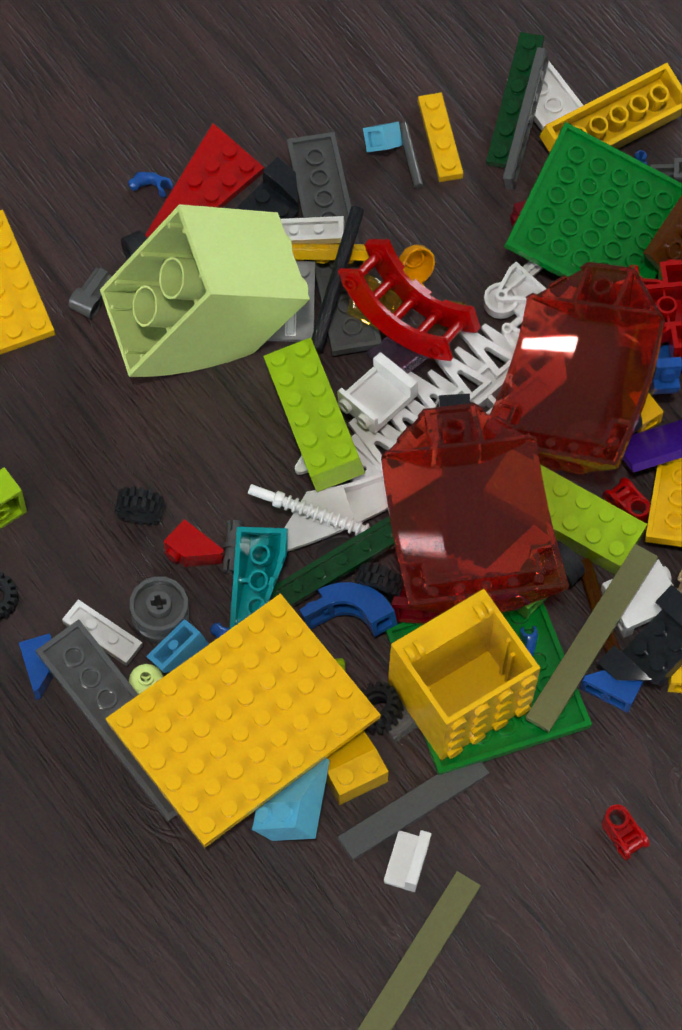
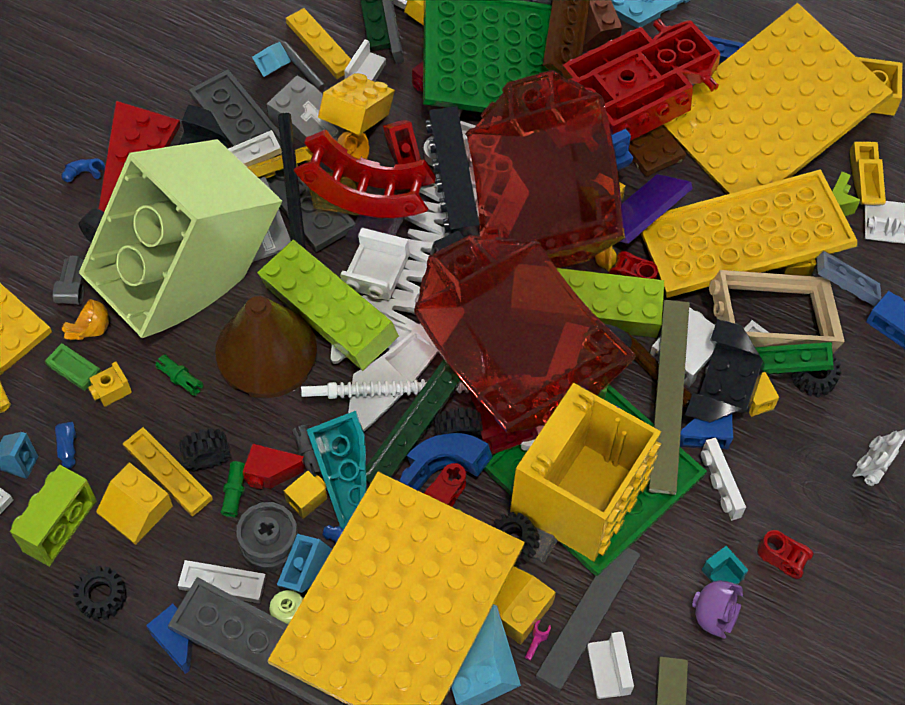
camera: 25 degrees left, 5 degrees down
(24, 439) = (65, 448): none -> blue piece
(56, 529) = (133, 503): none -> yellow slope
(59, 377) = (72, 366): none -> bright green tile
(83, 409) = (109, 385): none -> yellow brick
(92, 341) = (90, 322): none -> light orange piece
(99, 512) = (168, 471): none -> yellow plate
(149, 554) = (233, 489): none -> green pin
(150, 425) = (179, 375): none -> green pin
(212, 585) = (306, 494): none -> yellow brick
(240, 434) = (266, 349): none -> reddish brown cone
(338, 638) = (446, 490): none -> red piece
(357, 805) = (538, 637): none -> dark pink hand
(390, 210) = (303, 104): none -> light grey slope
(439, 220) = (356, 103): none -> yellow brick
(467, 278) = (402, 142): none -> red slope
(468, 183) = (365, 63): none -> white panel
(496, 332) = (453, 172): none -> black brick
(532, 852) = (717, 607): none -> medium lavender cylinder
(558, 821) = (725, 567): none -> teal panel
(602, 738) = (722, 479): none -> white plate
(611, 477) = (606, 258): none -> yellow piece

